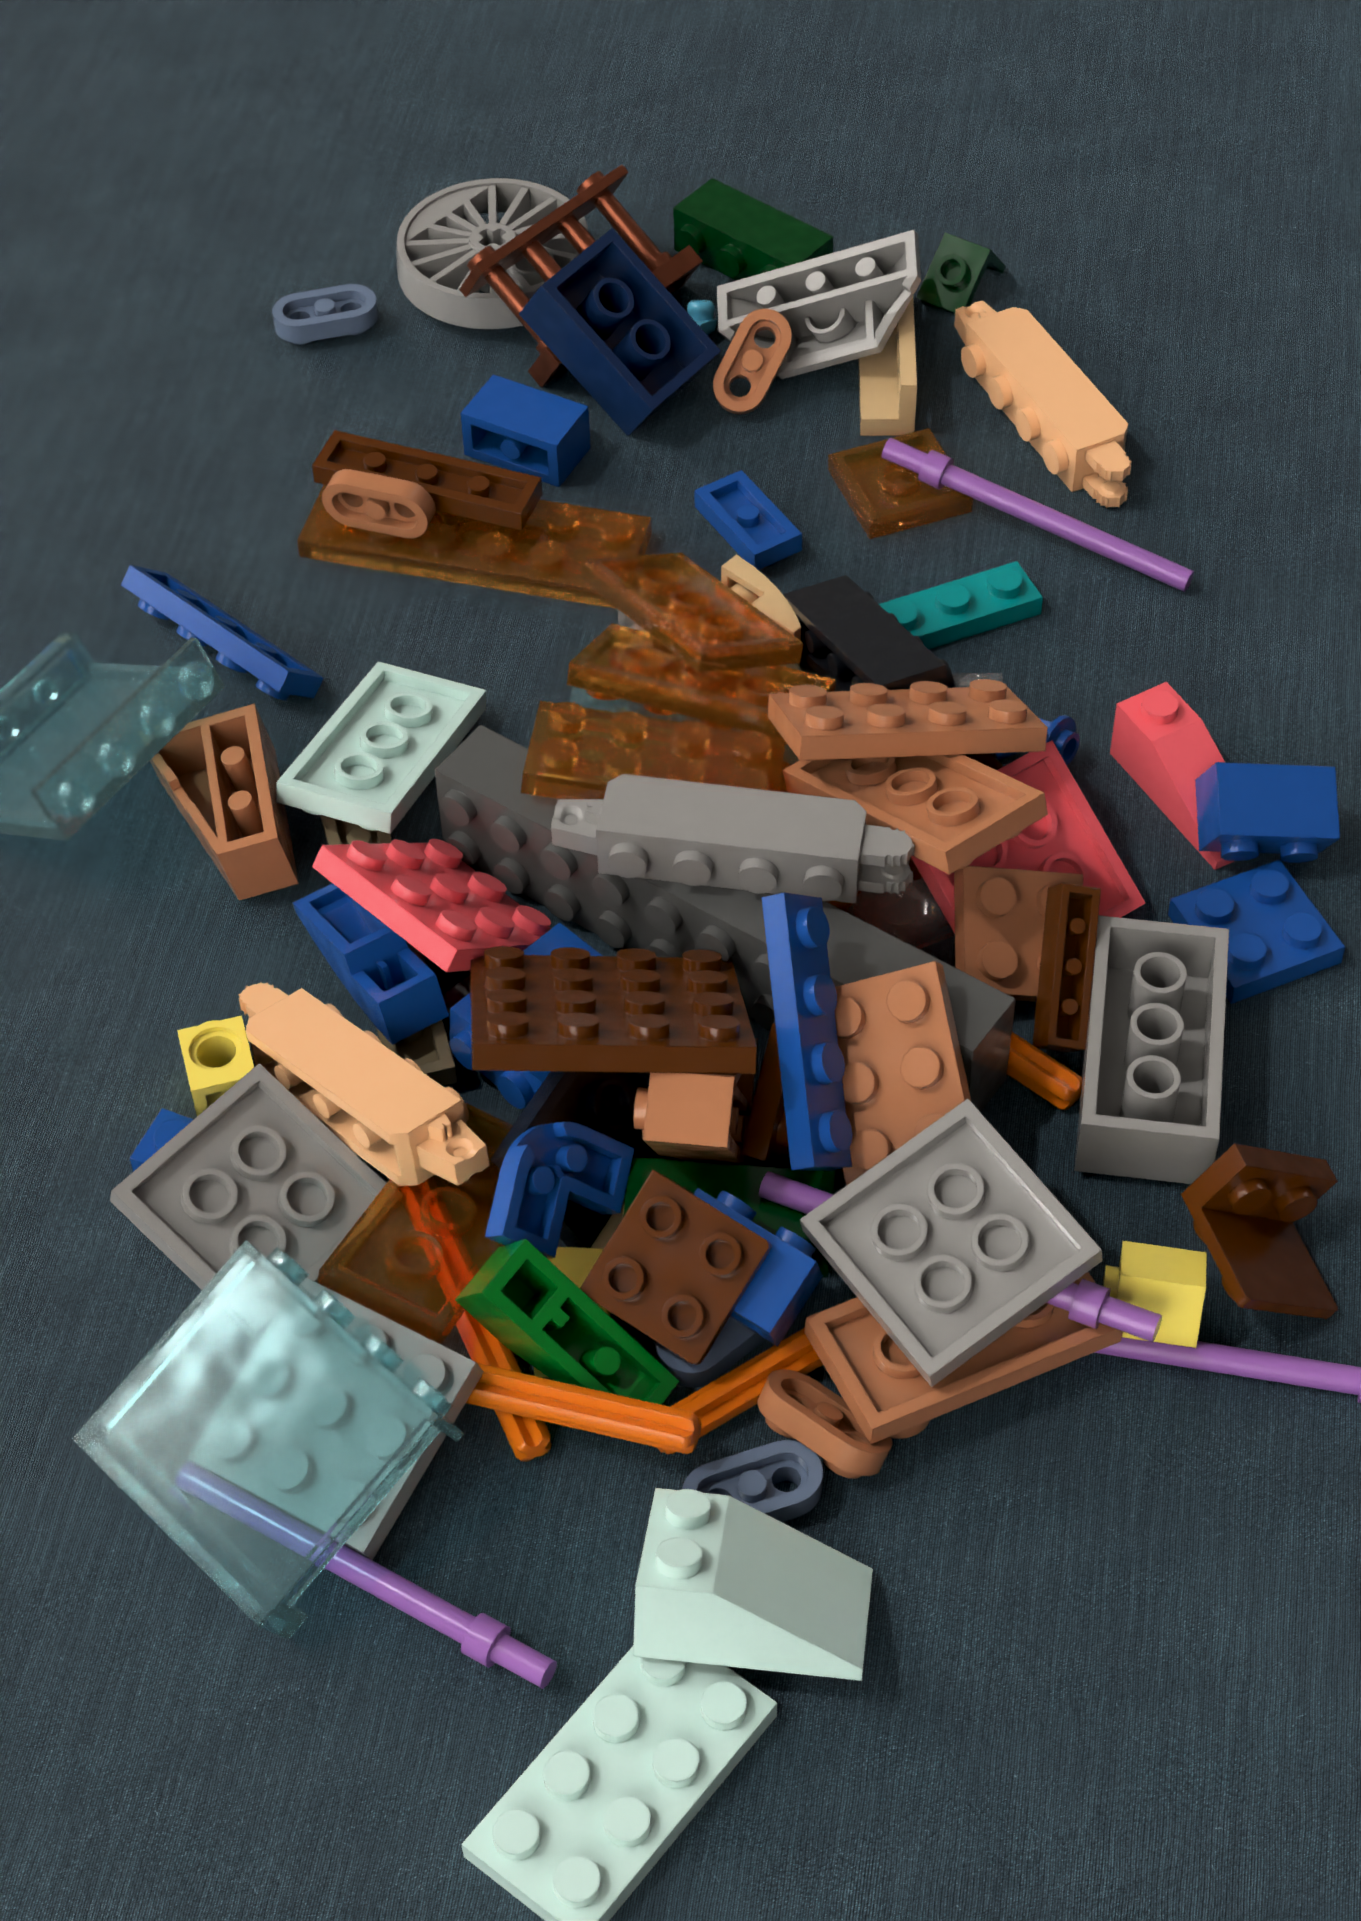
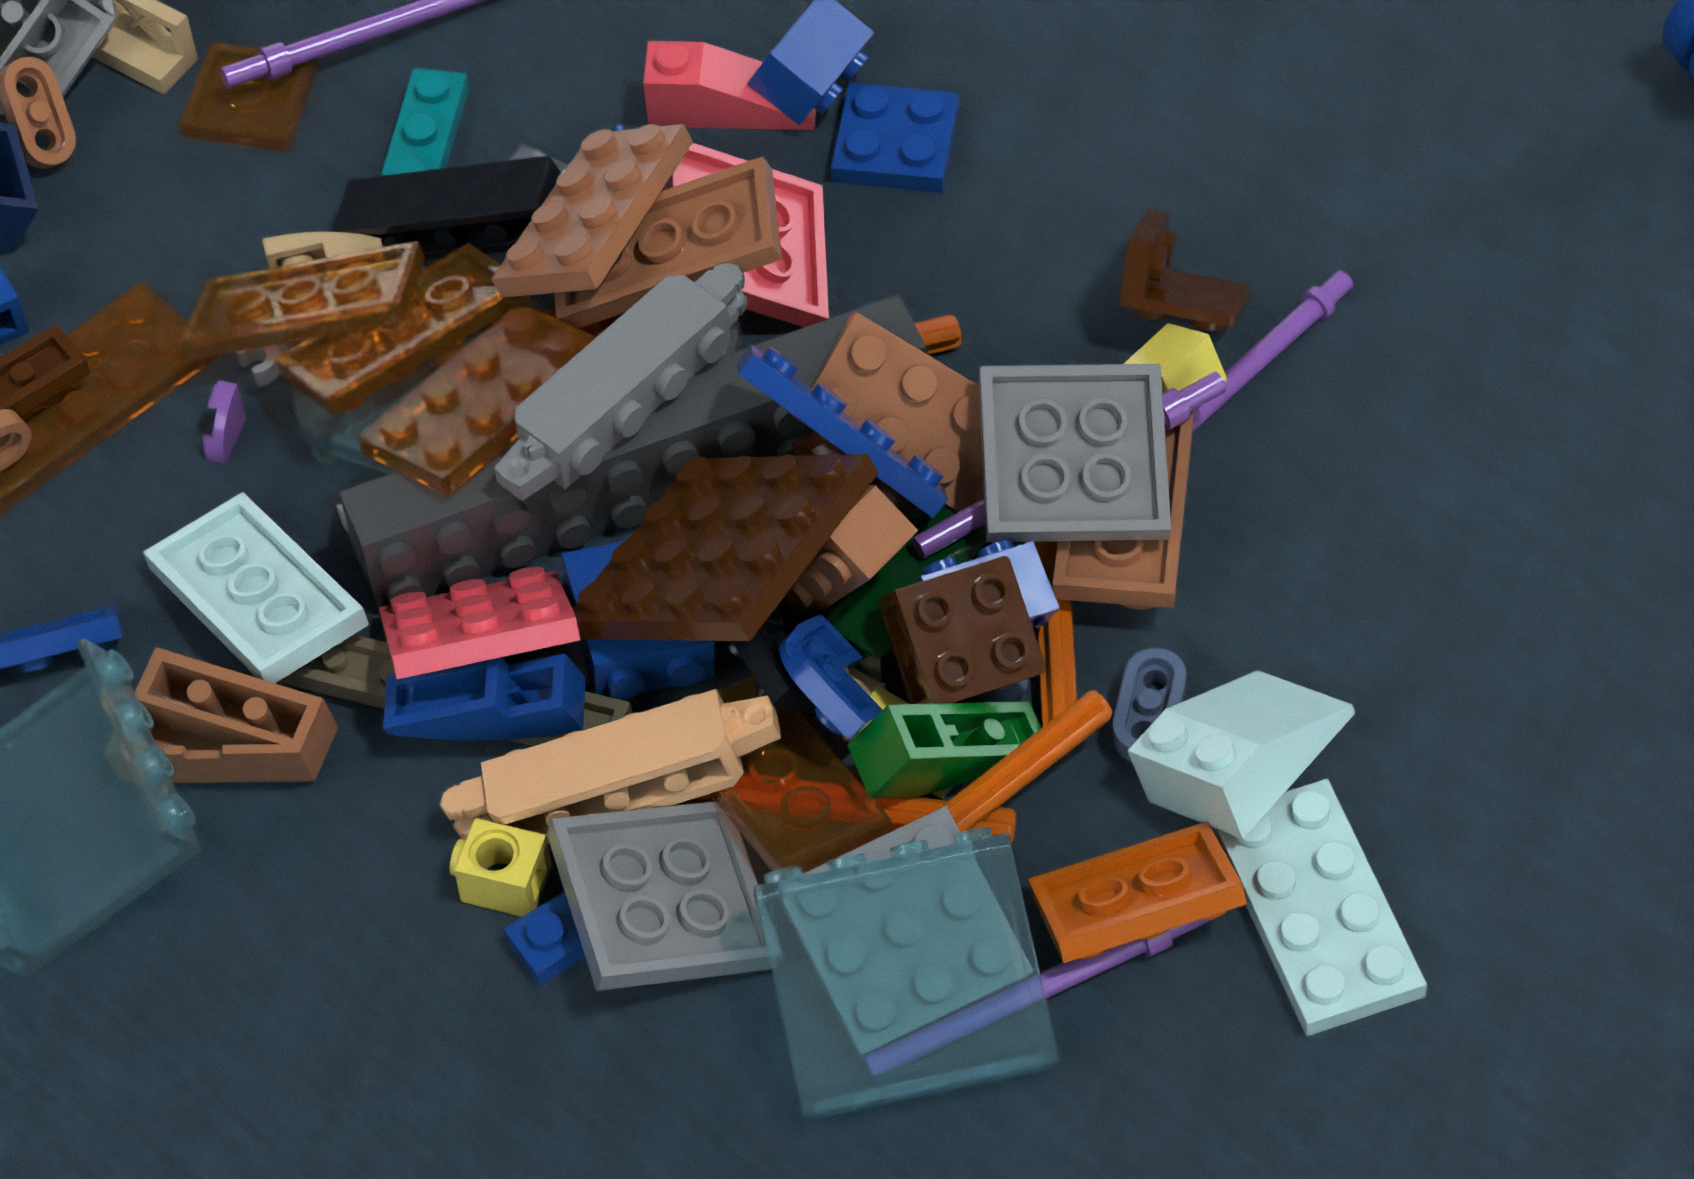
camera: 55 degrees left, 5 degrees up
(505, 1592) = (1137, 892): none -> orange plate
(551, 643) = (227, 424): none -> medium lavender tile
(748, 520) = (206, 217): blue plate -> none
(820, 1421) = (1110, 636): nougat plate -> none
(1003, 925) = (816, 273): nougat plate -> none
(1066, 968) = (863, 253): reddish brown piece -> none
(1153, 1051) = (969, 253): light grey brick -> none

